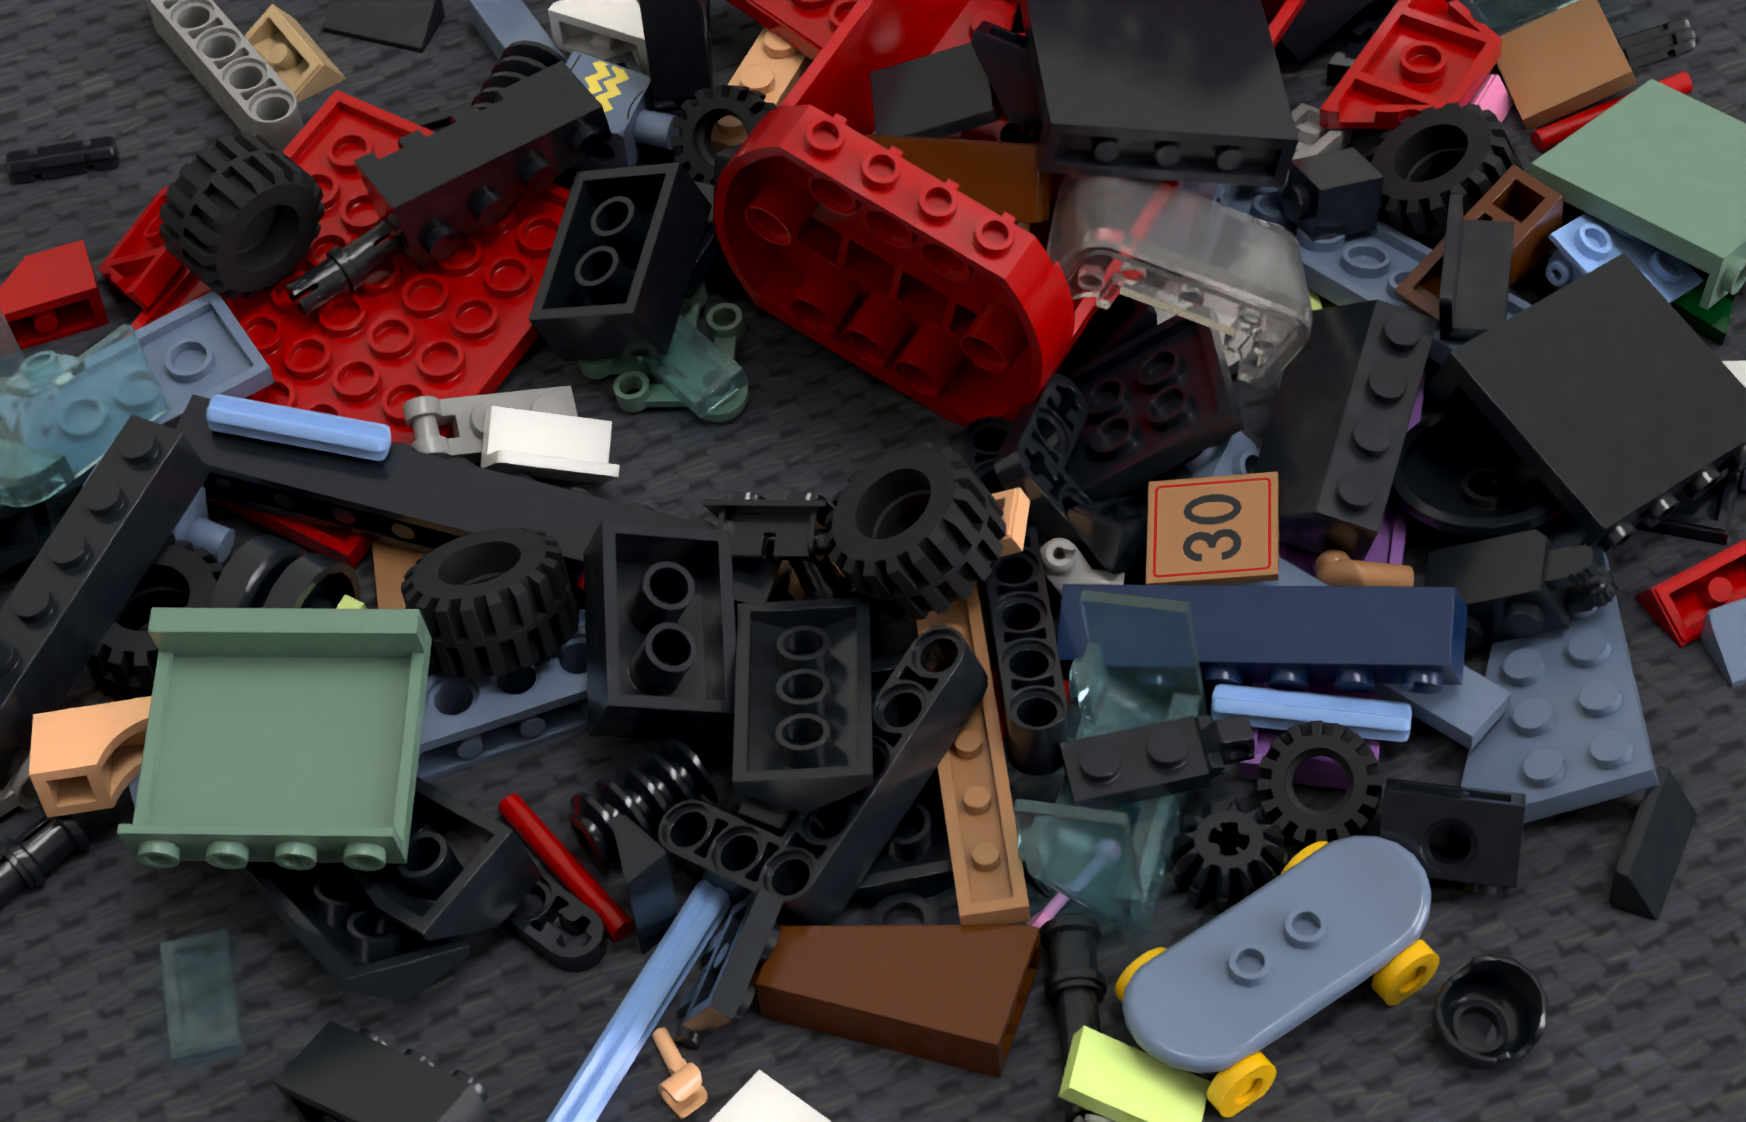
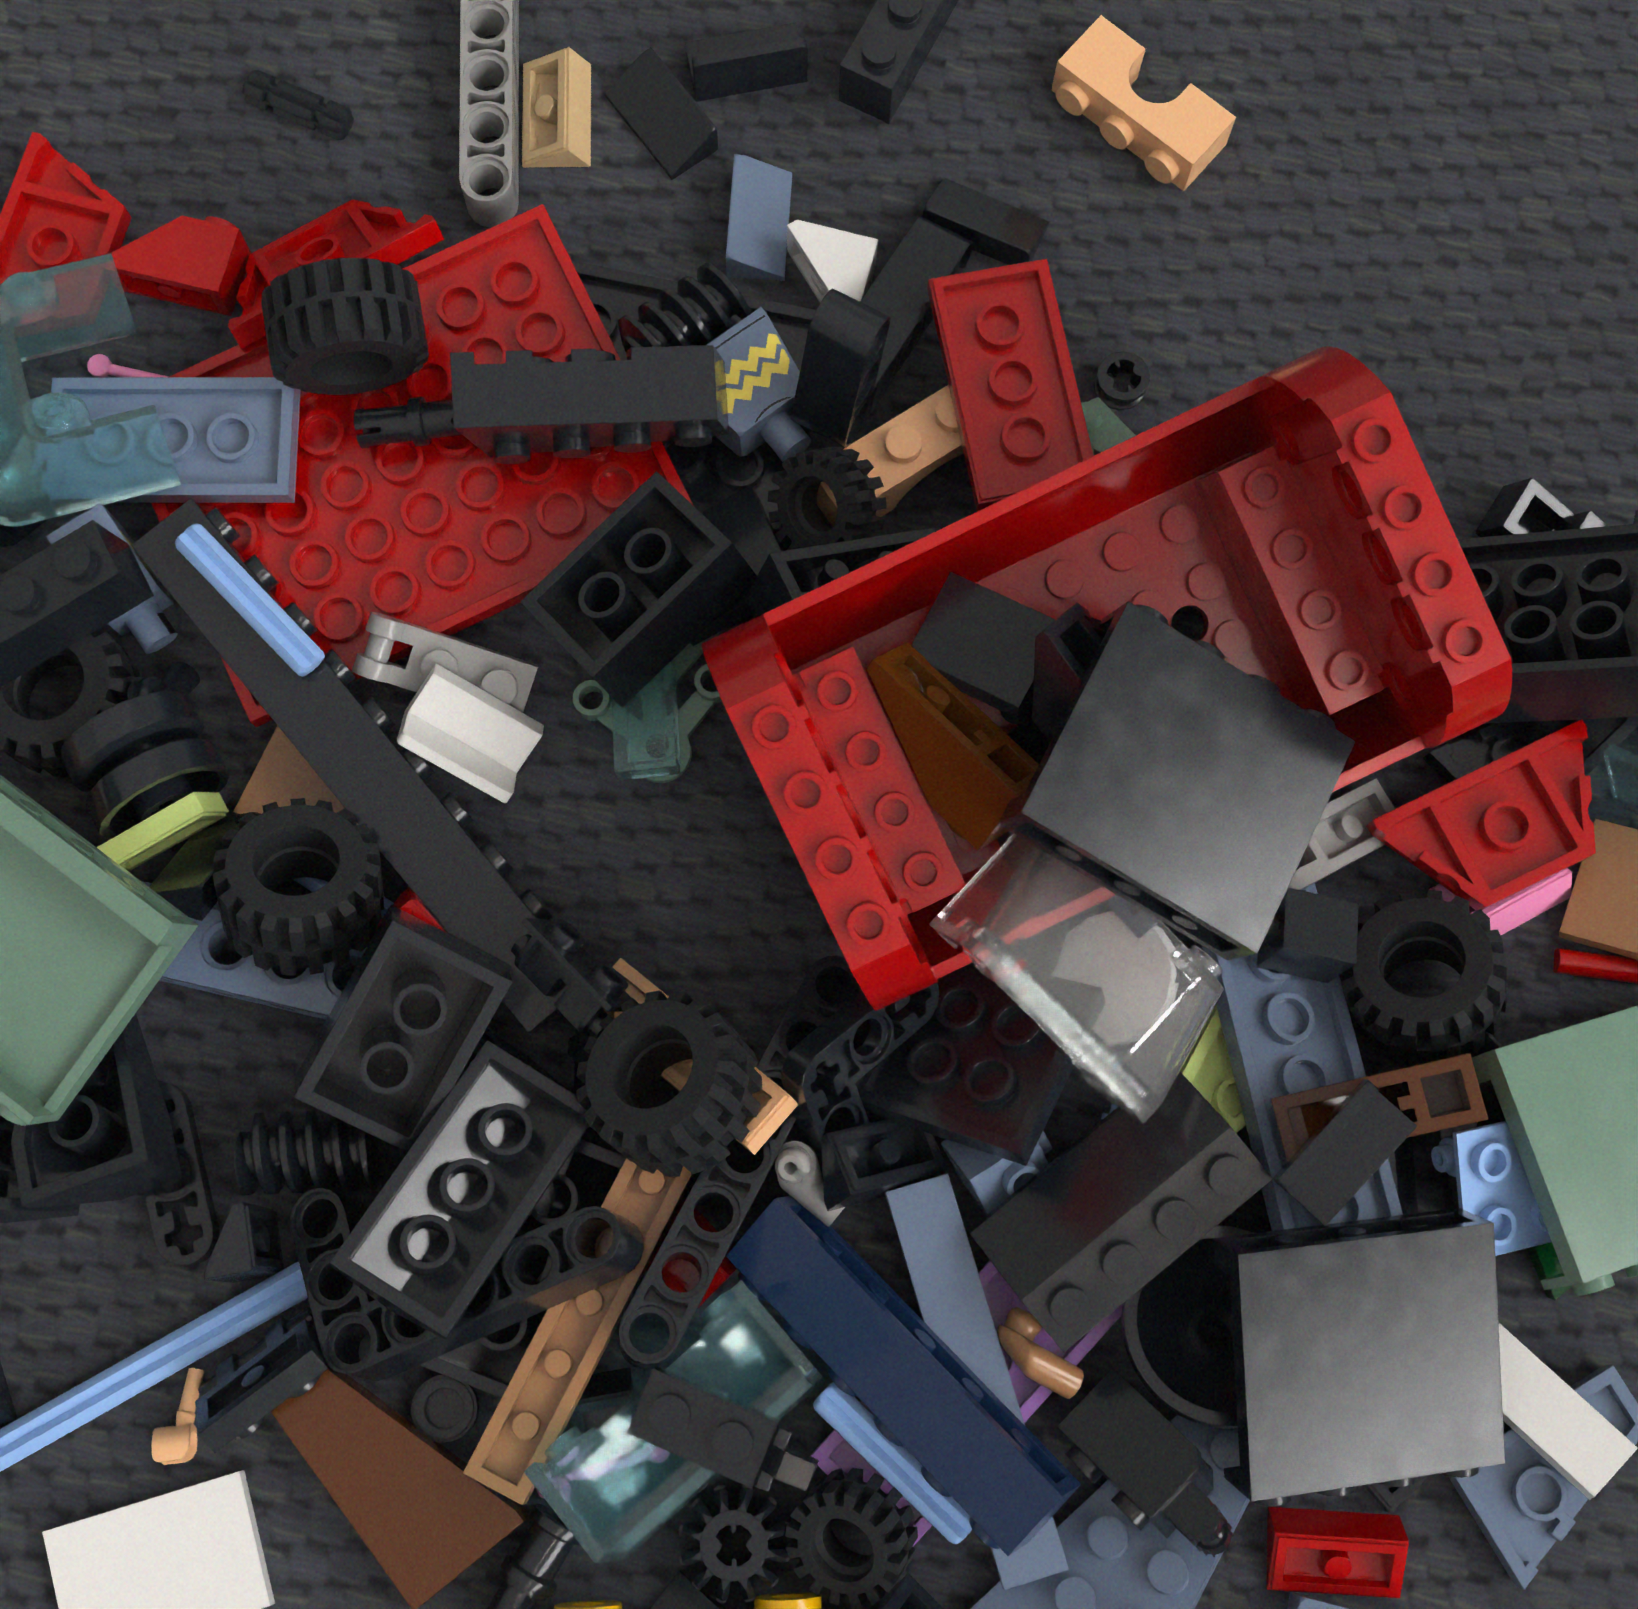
camera: 25 degrees right, 25 degrees up
(565, 865) = (226, 1130): red bar -> none
(1213, 530) = (932, 1241): medium nougat piece -> none

